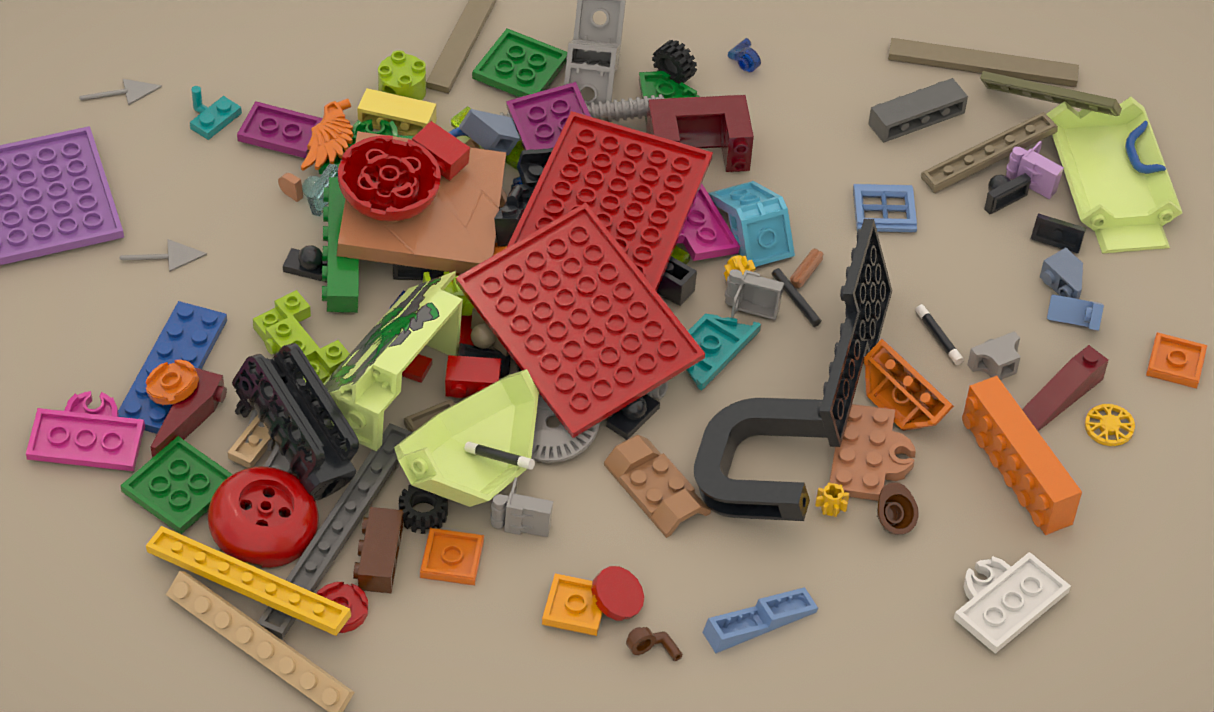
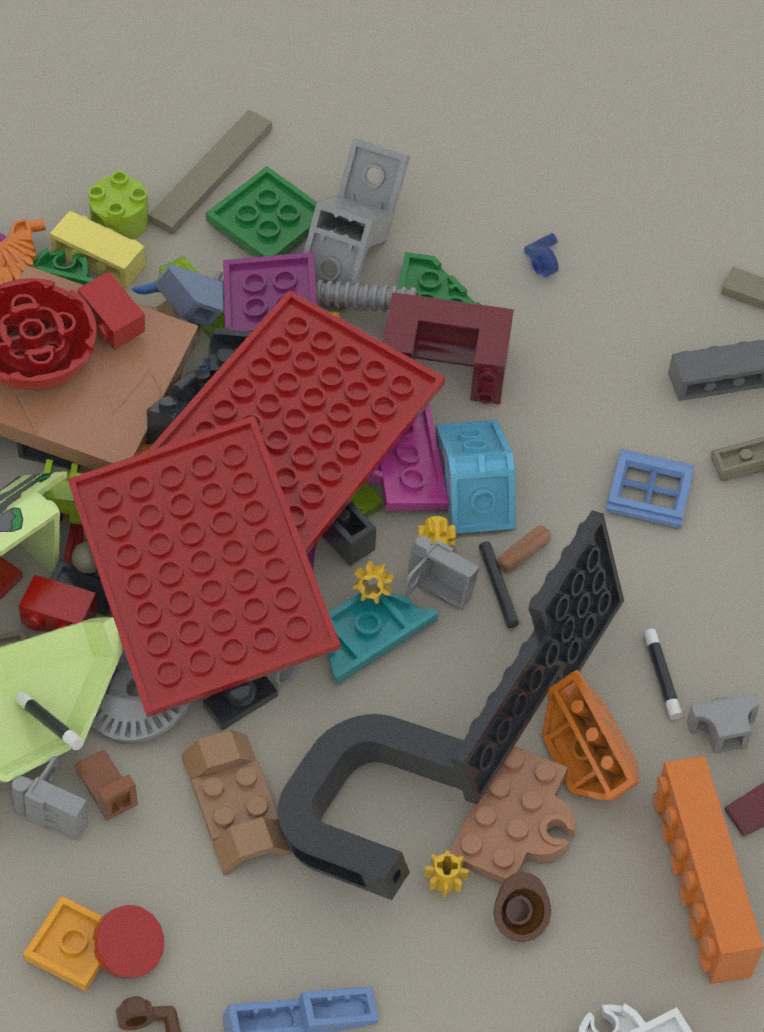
camera: 15 degrees right, 5 degrees up
(565, 497) = (106, 785): none -> dark orange bracket
(675, 61) = (450, 248): black tyre -> none
(710, 316) = (373, 571): none -> yellow gear

